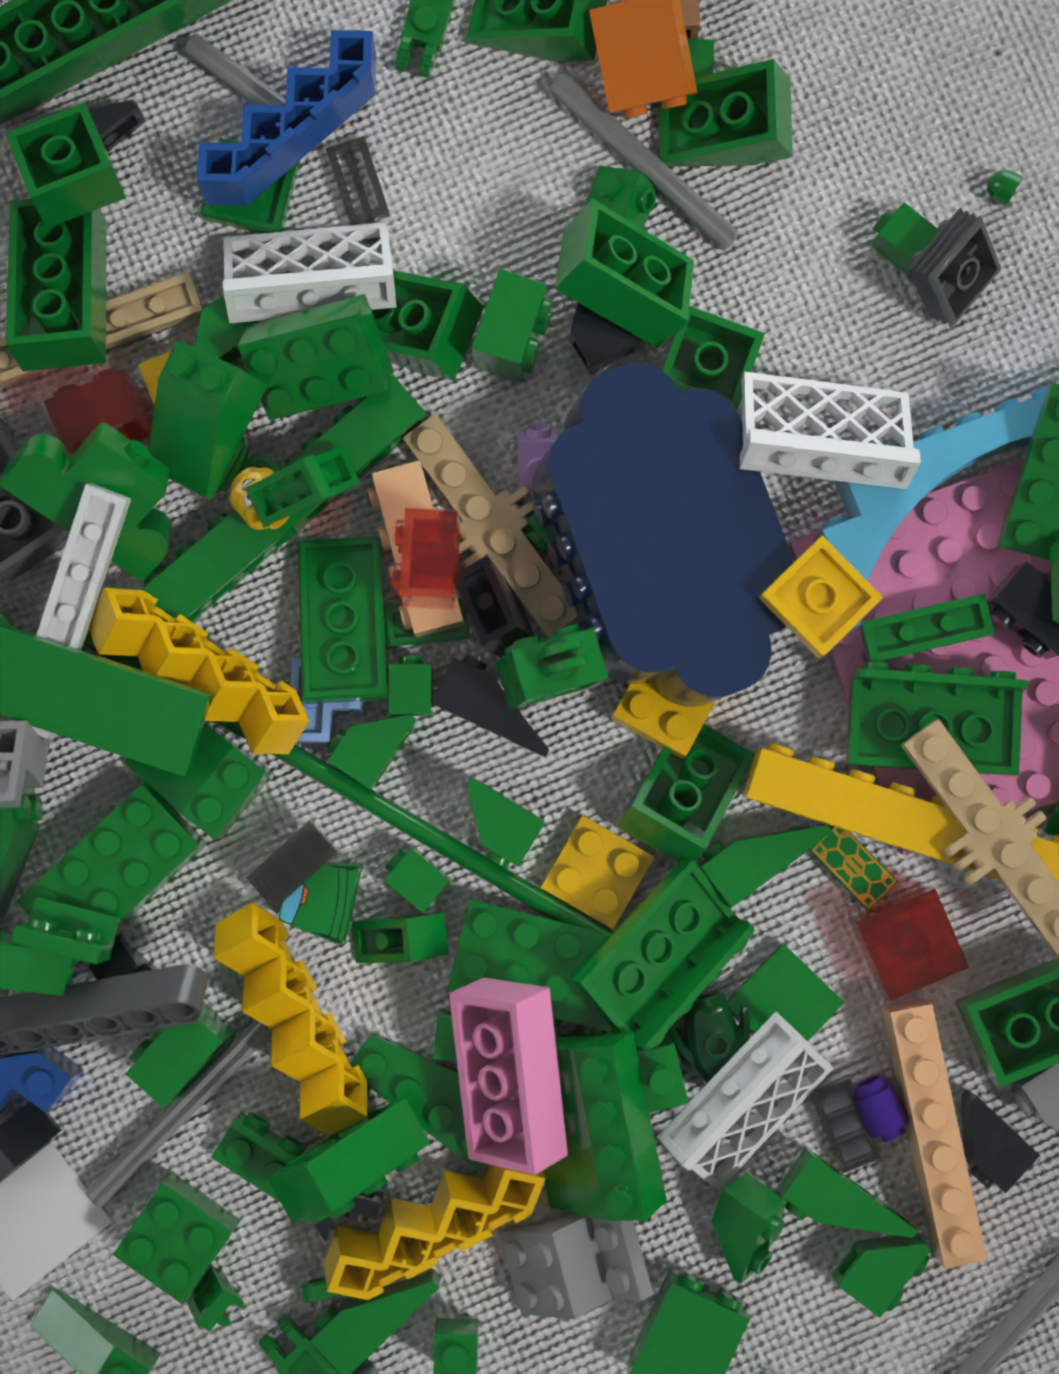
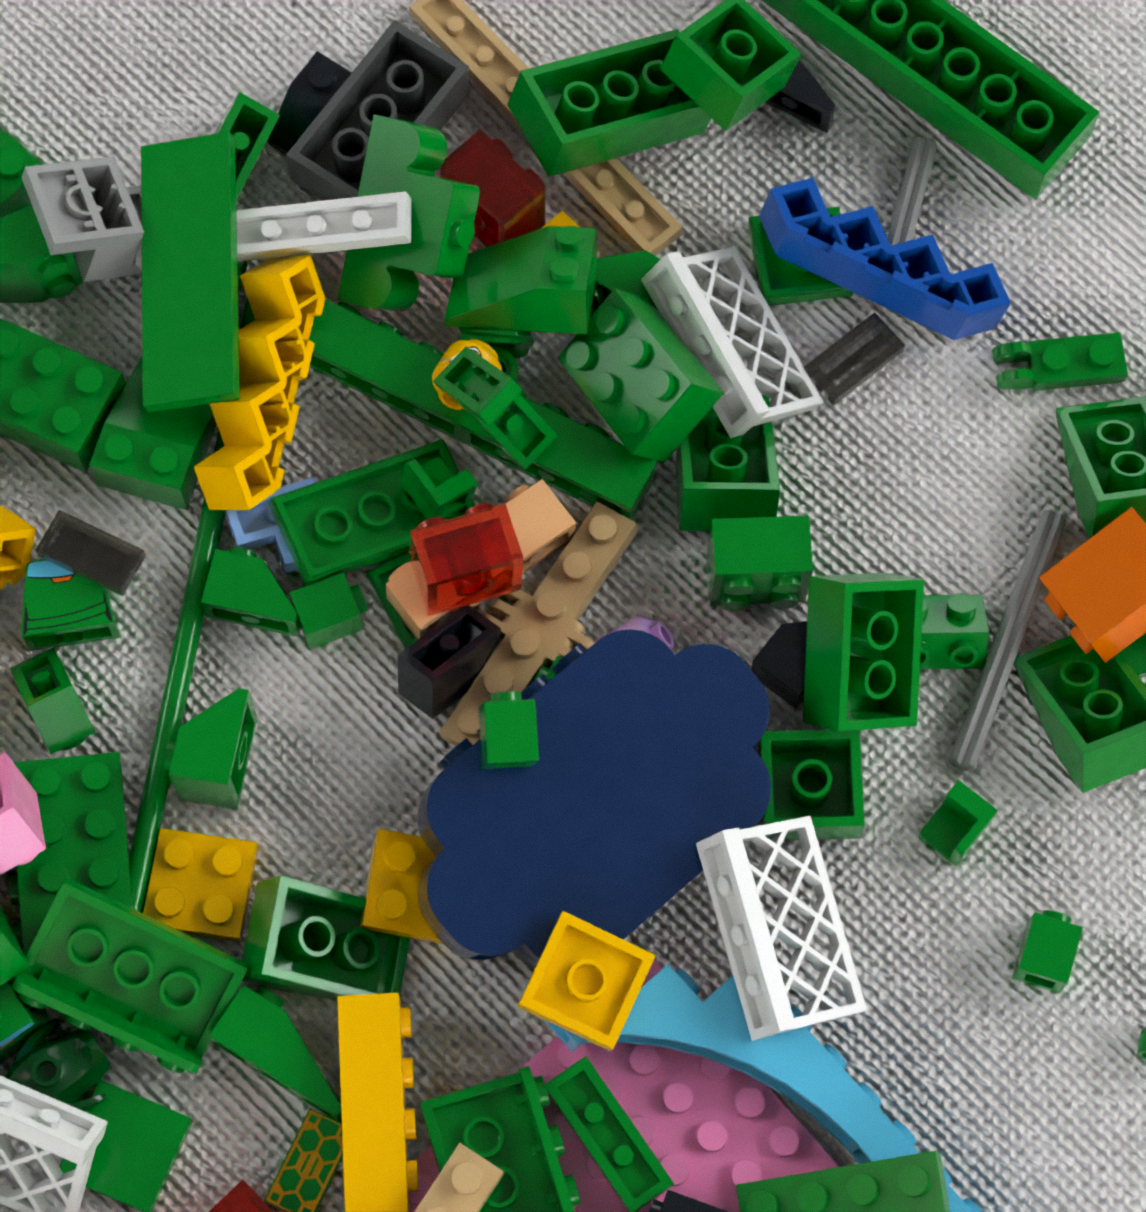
camera: 65 degrees right, 15 degrees down
(344, 562) = (436, 488): none -> green panel
(416, 877) = (123, 692): green brick -> none
(480, 700) = (340, 694): black slope -> none
(551, 668) = (398, 726): green brick -> none
(607, 579) = (508, 731): none -> green brick
(779, 263) = (957, 823): none -> green panel
(954, 267) = (1034, 1013): dark grey brick -> none

